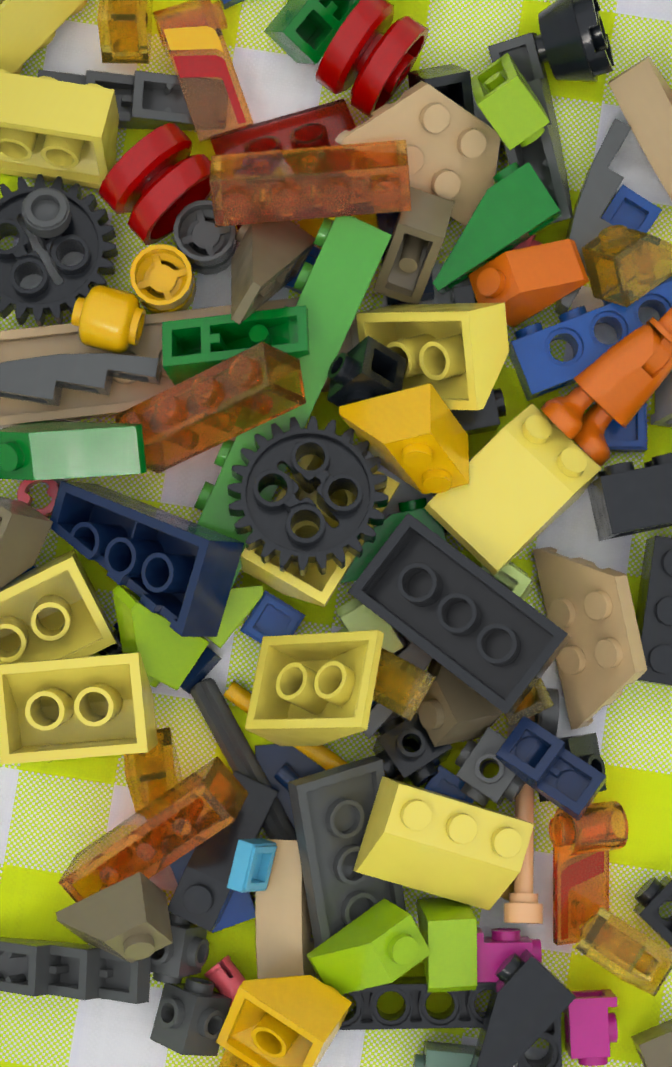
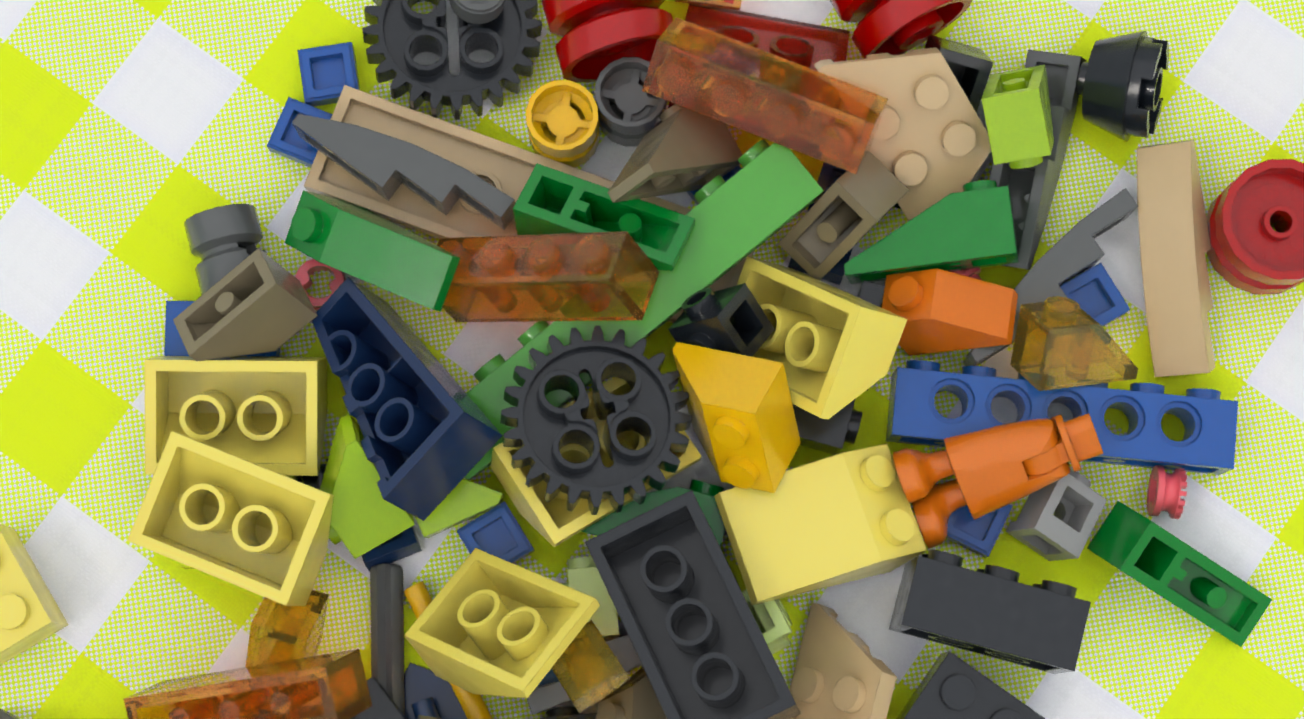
camera: 30 degrees right, 5 degrees down
(109, 319) = (485, 135): yellow head -> none

